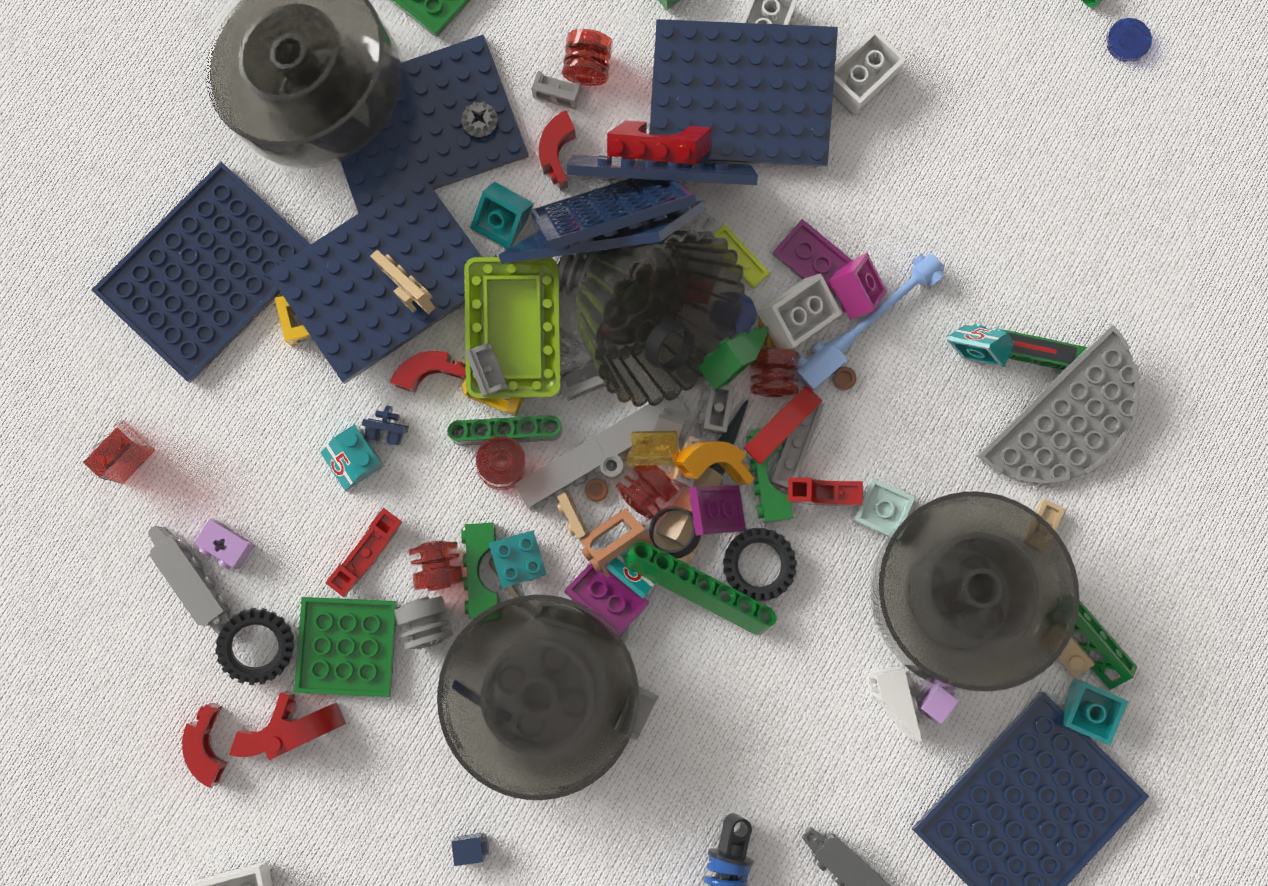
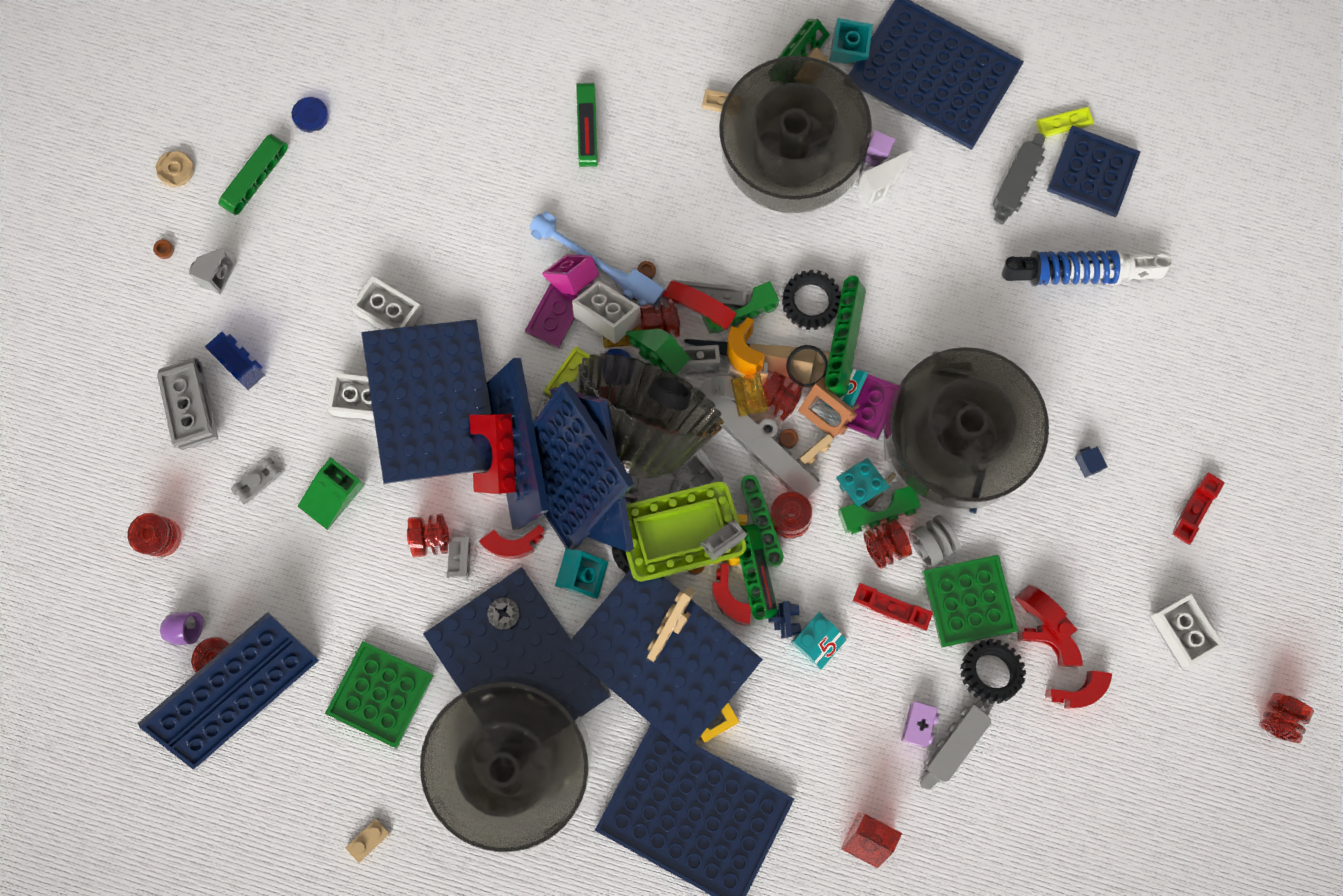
camera: 105 degrees left, 5 degrees down
(443, 404) = (757, 582): none -> green beam
(717, 509) = (781, 337): magenta plate -> none
(825, 492) = (741, 261): red arch -> none
(883, 507) = (741, 218): light aqua plate -> none
(982, 344) = (595, 171): teal slope -> none
(1074, 419) = (636, 95): light grey plate -> none

